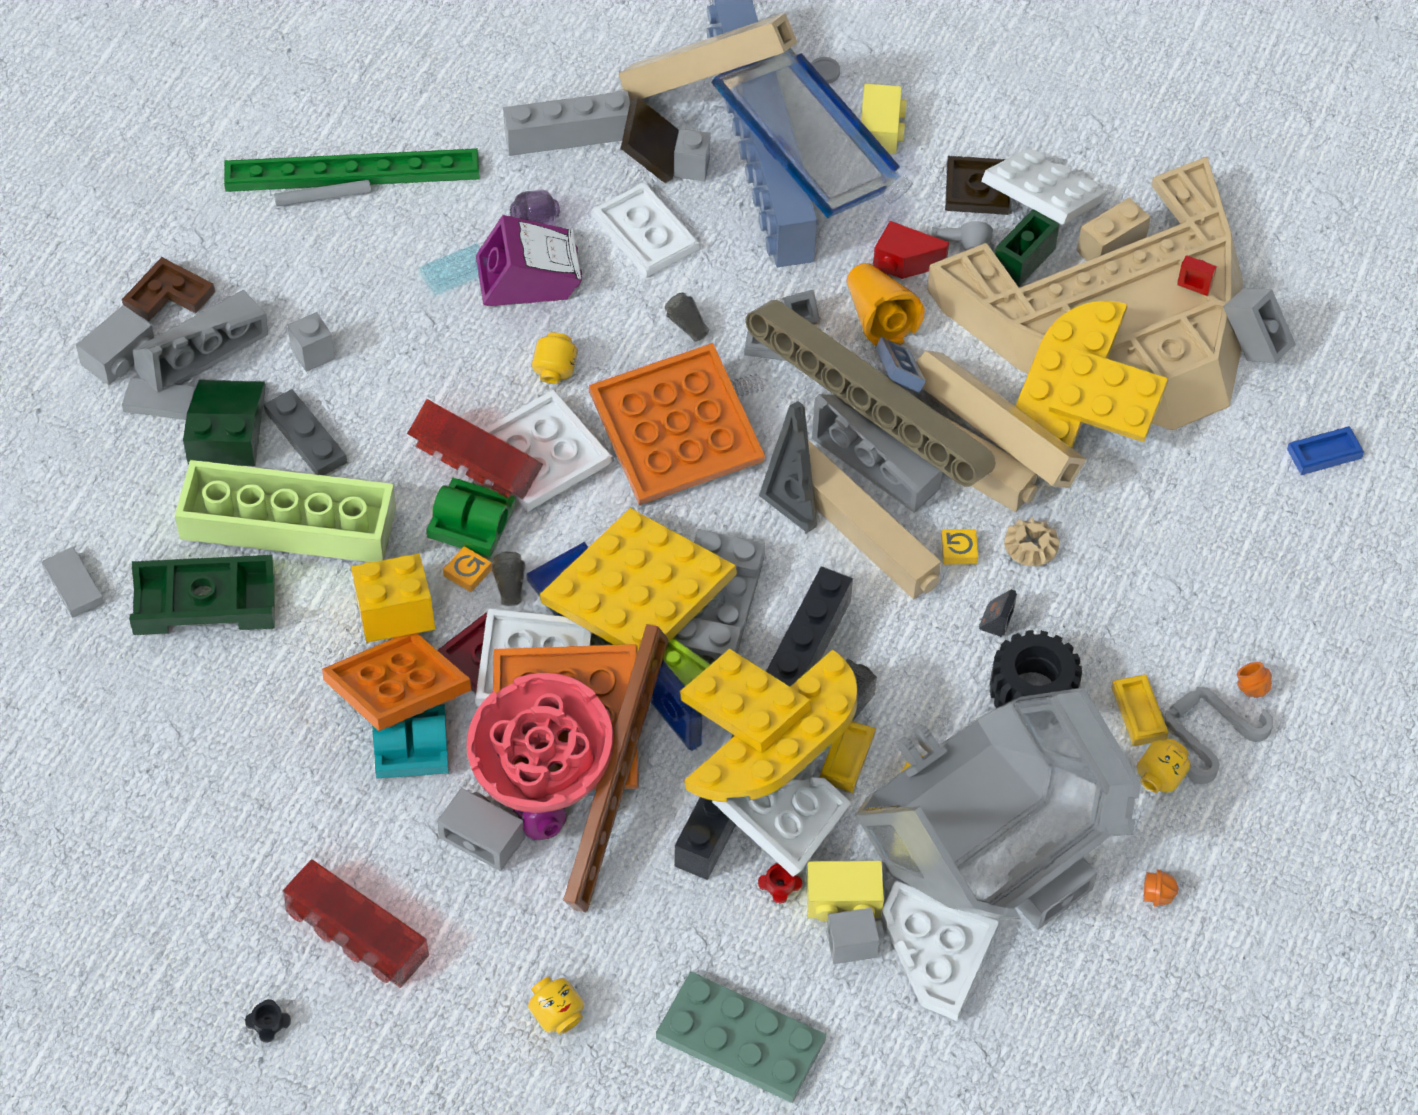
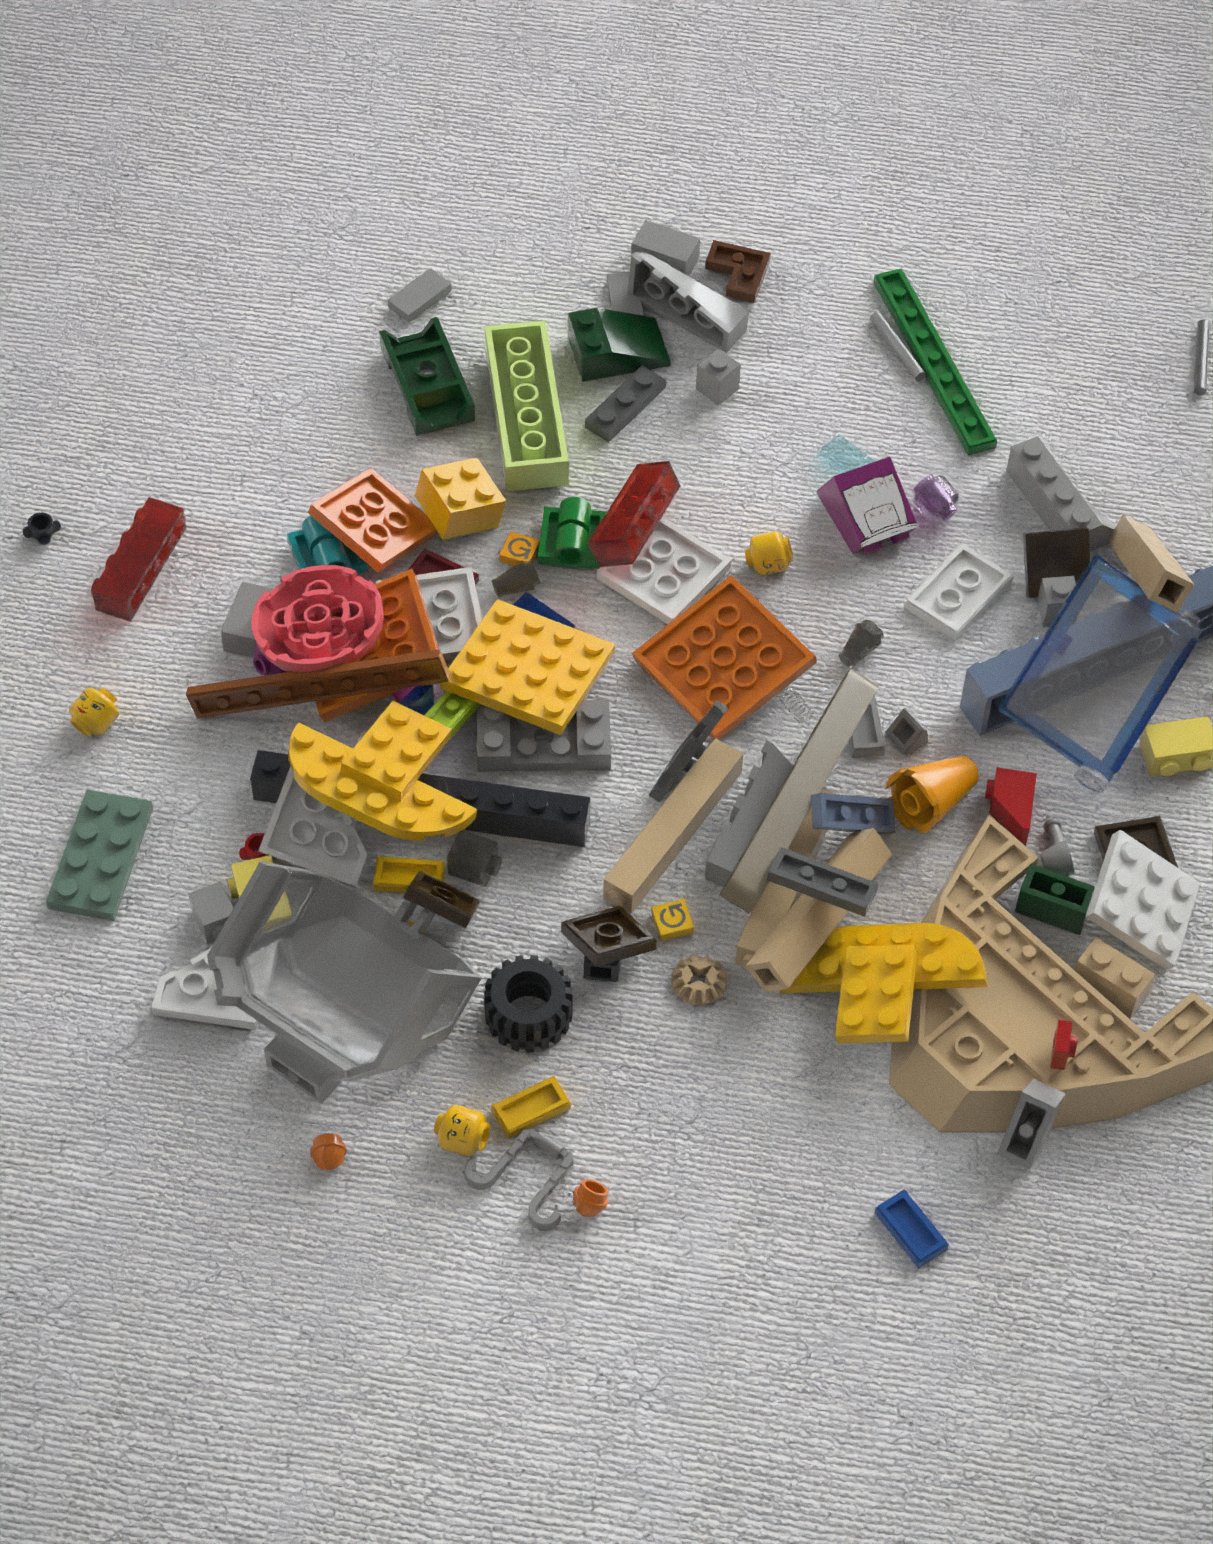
camera: 75 degrees right, 0 degrees up
(904, 719) = (442, 899): none -> dark brown tile
(977, 595) = (608, 936): none -> dark brown tile
(992, 394) = (822, 881): none -> dark grey plate

